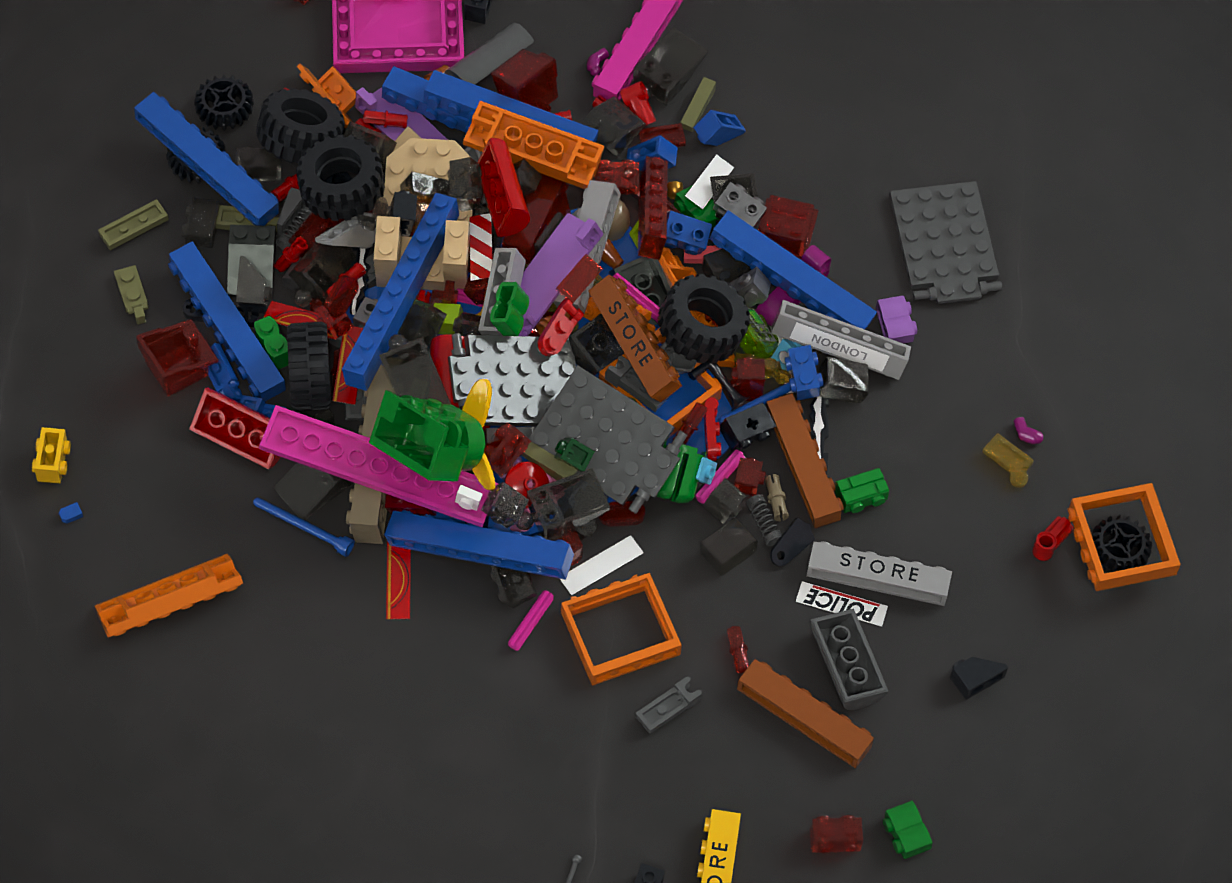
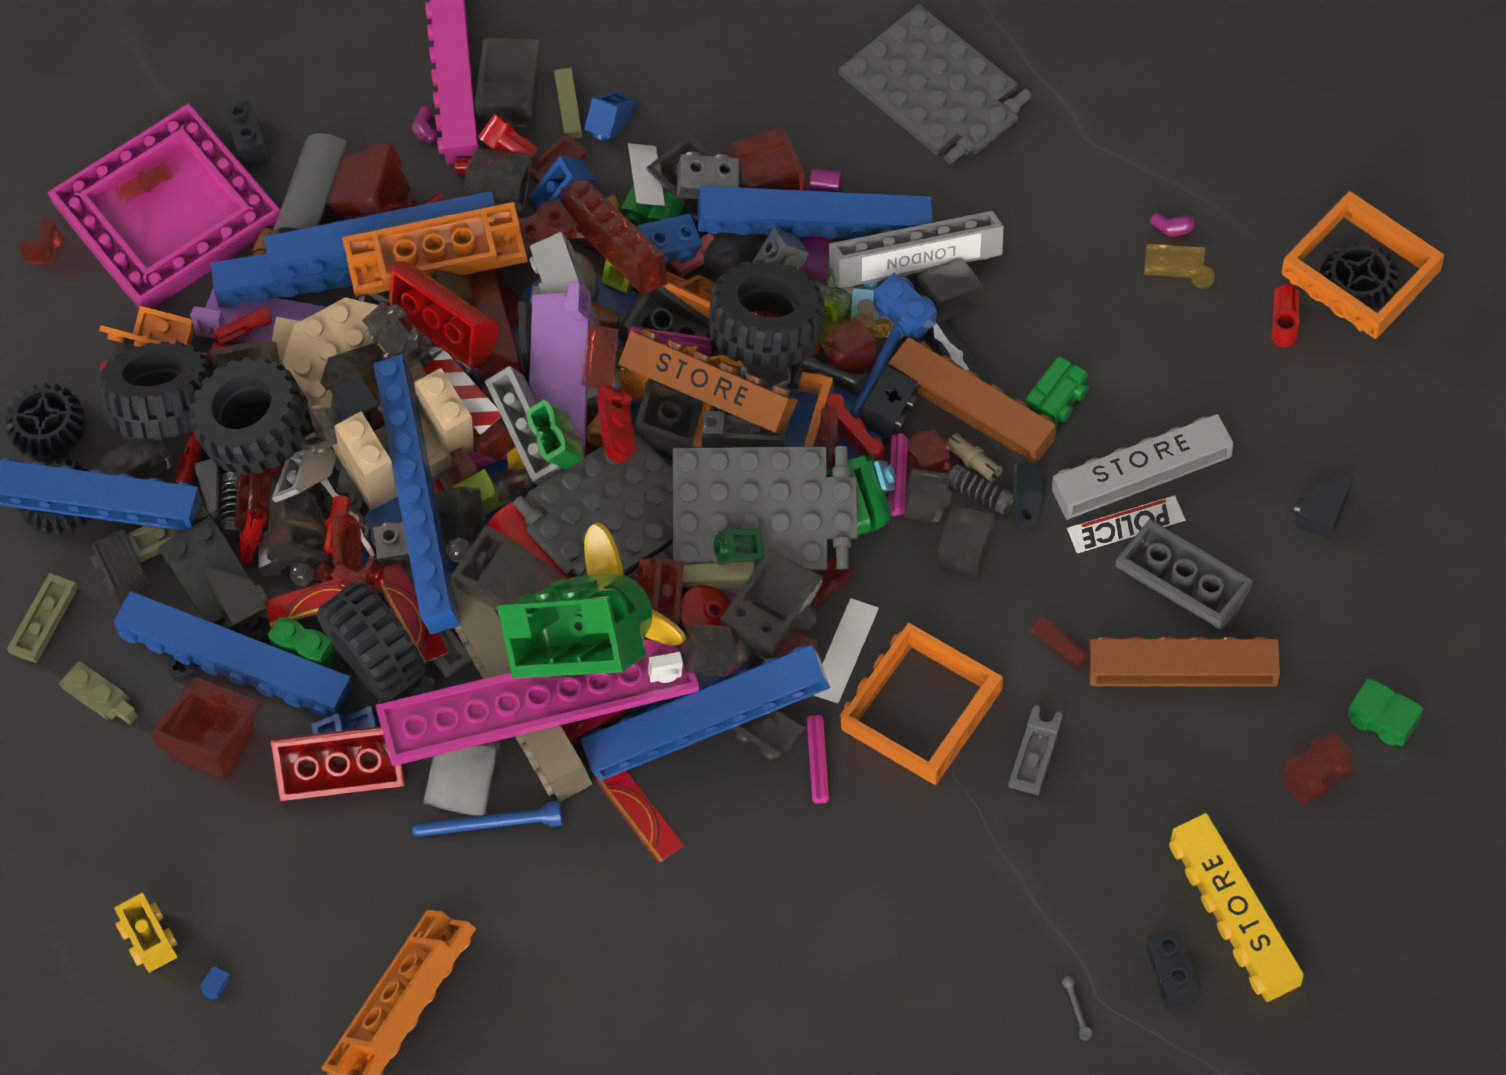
camera: 25 degrees left, 0 degrees up
(223, 375) = (275, 717): blue hinge -> none
(895, 319) = (950, 194): medium lavender brick -> none

